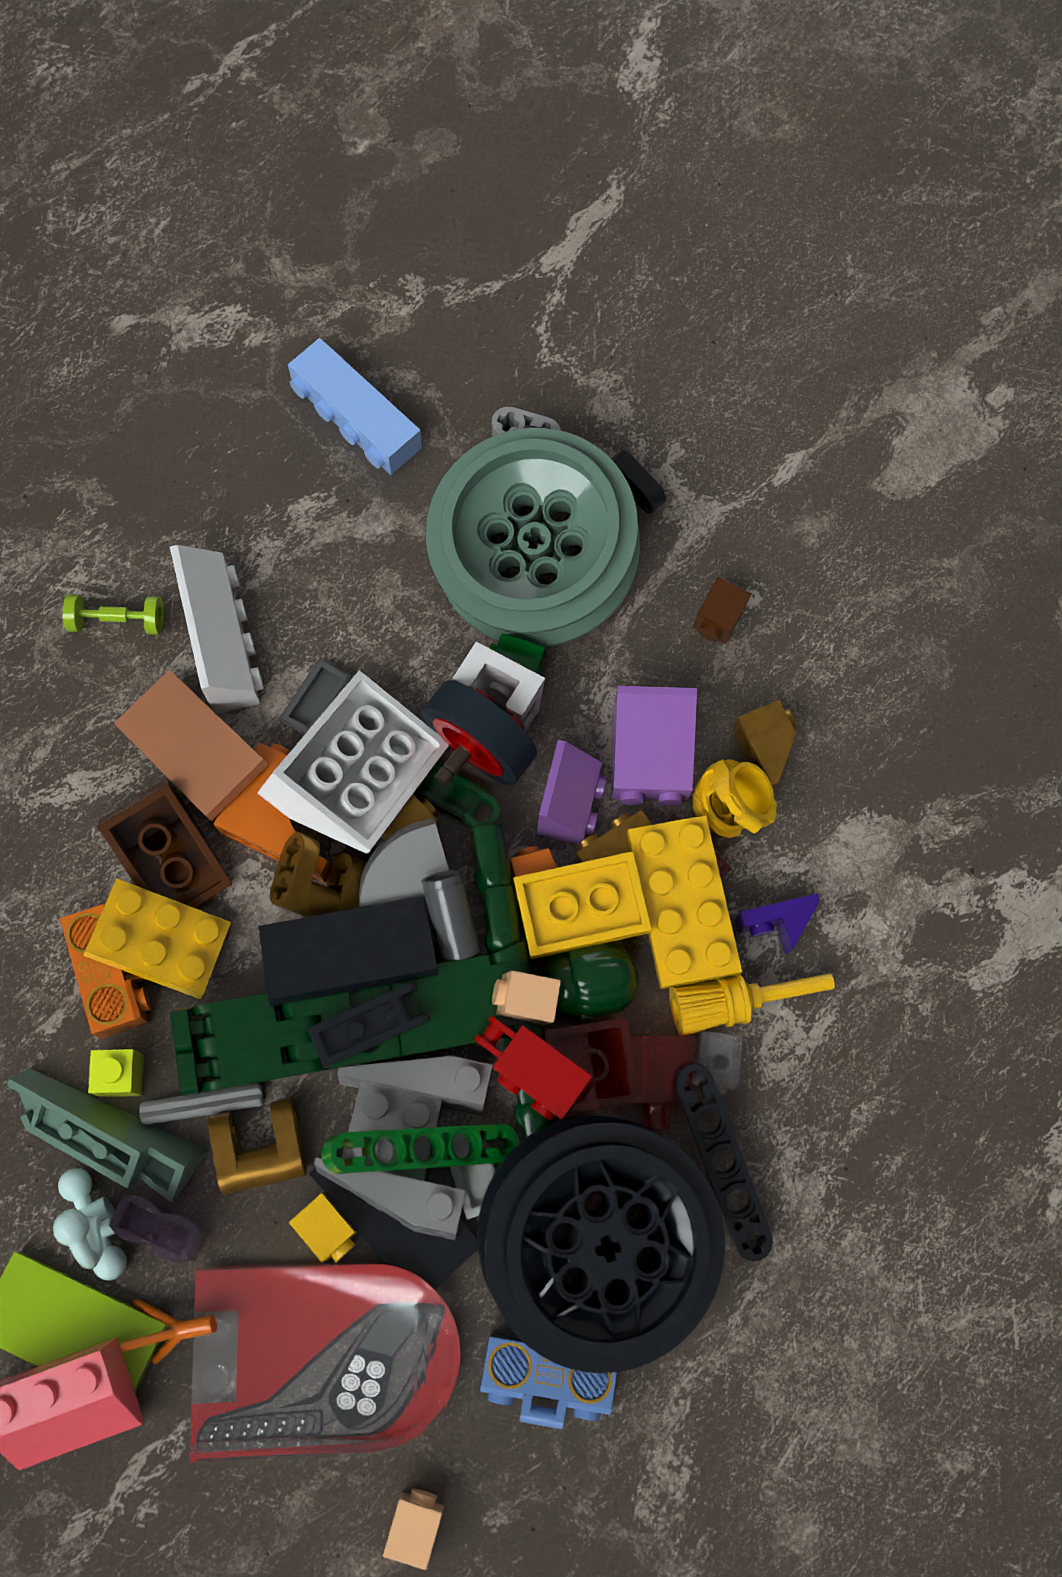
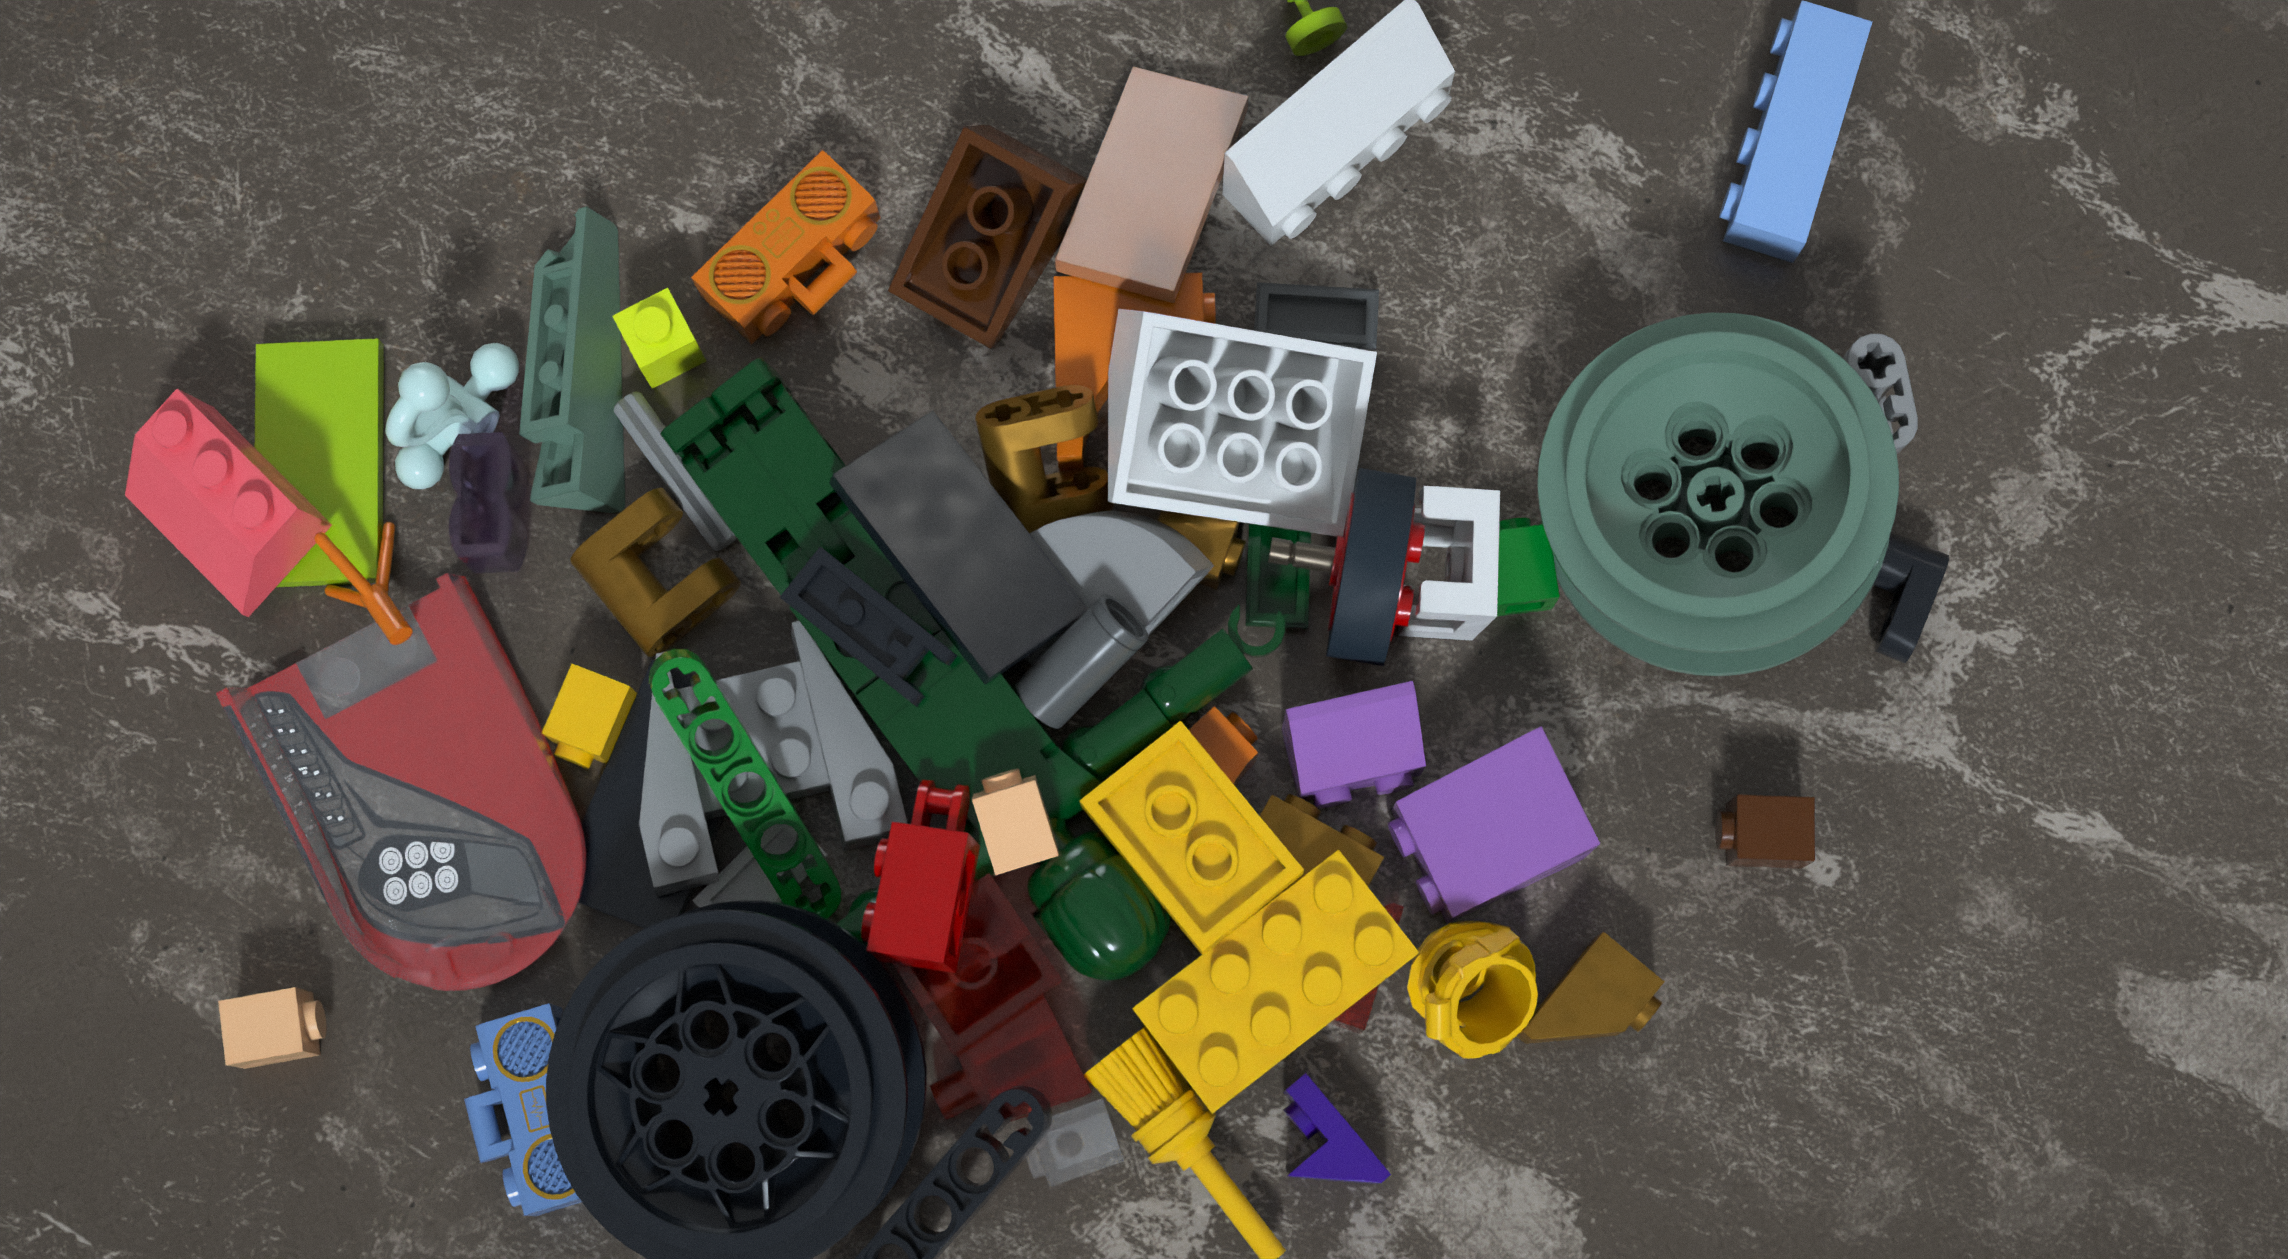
camera: 70 degrees right, 5 degrees up
(157, 939) = (861, 291): yellow plate -> none

